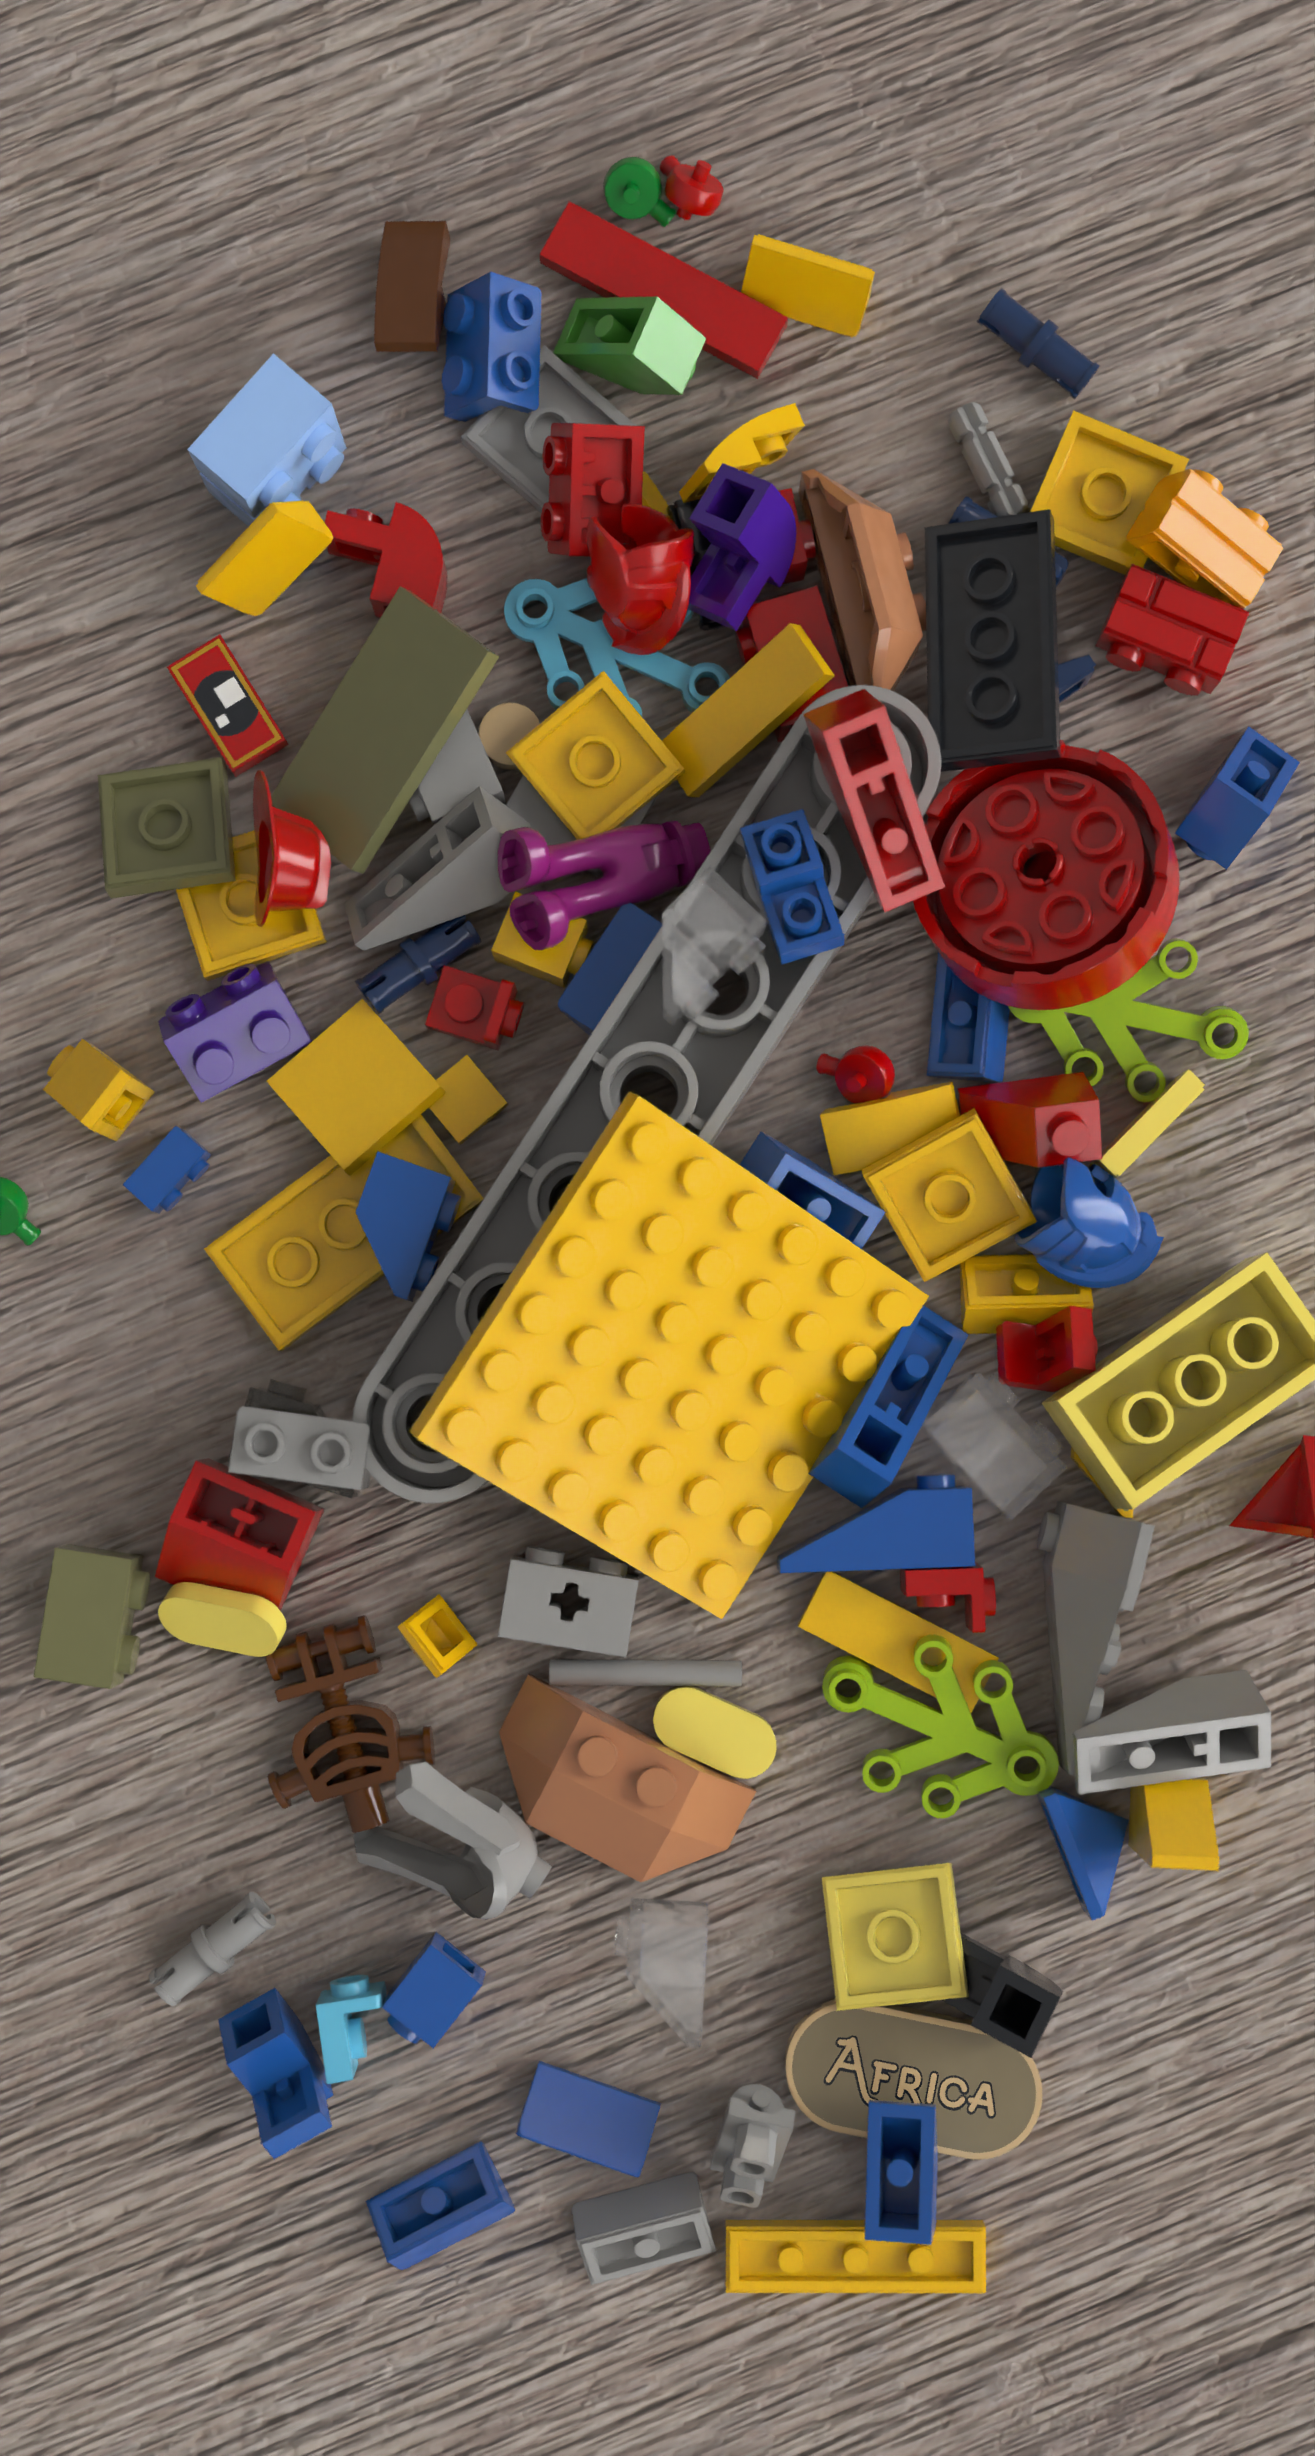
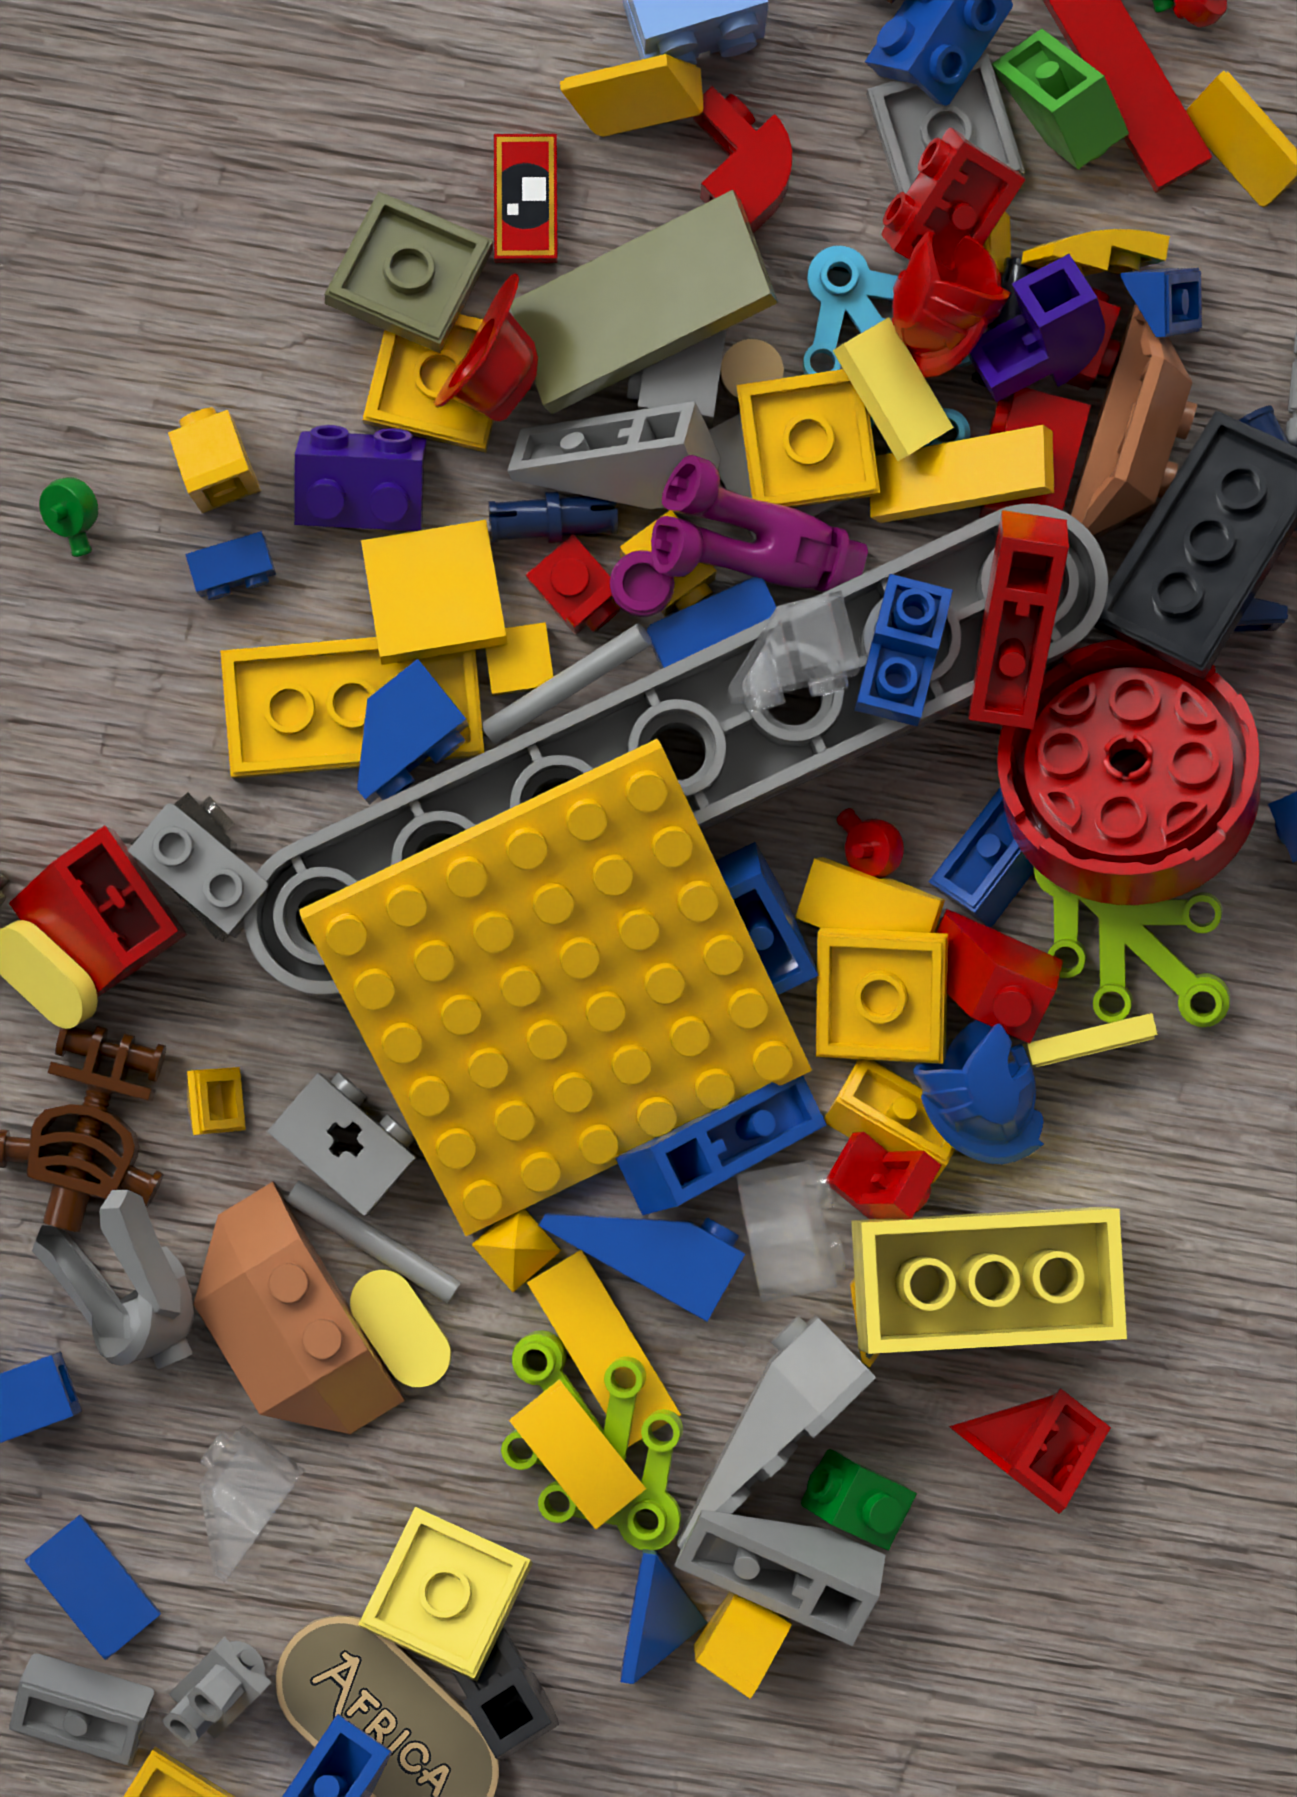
camera: 30 degrees right, 0 degrees up
(517, 1094) = (567, 683): none -> light grey bar
(529, 973) = (639, 587): none -> magenta tile
(641, 673) = (893, 389): none -> light yellow tile
(770, 1602) = (516, 1248): none -> yellow slope
(826, 455) = (1167, 299): none -> blue slope
(934, 1748) = (577, 1454): none -> yellow slope
(939, 1586) = (667, 1322): red bracket -> none
(1192, 1637) = (857, 1499): none -> green bracket

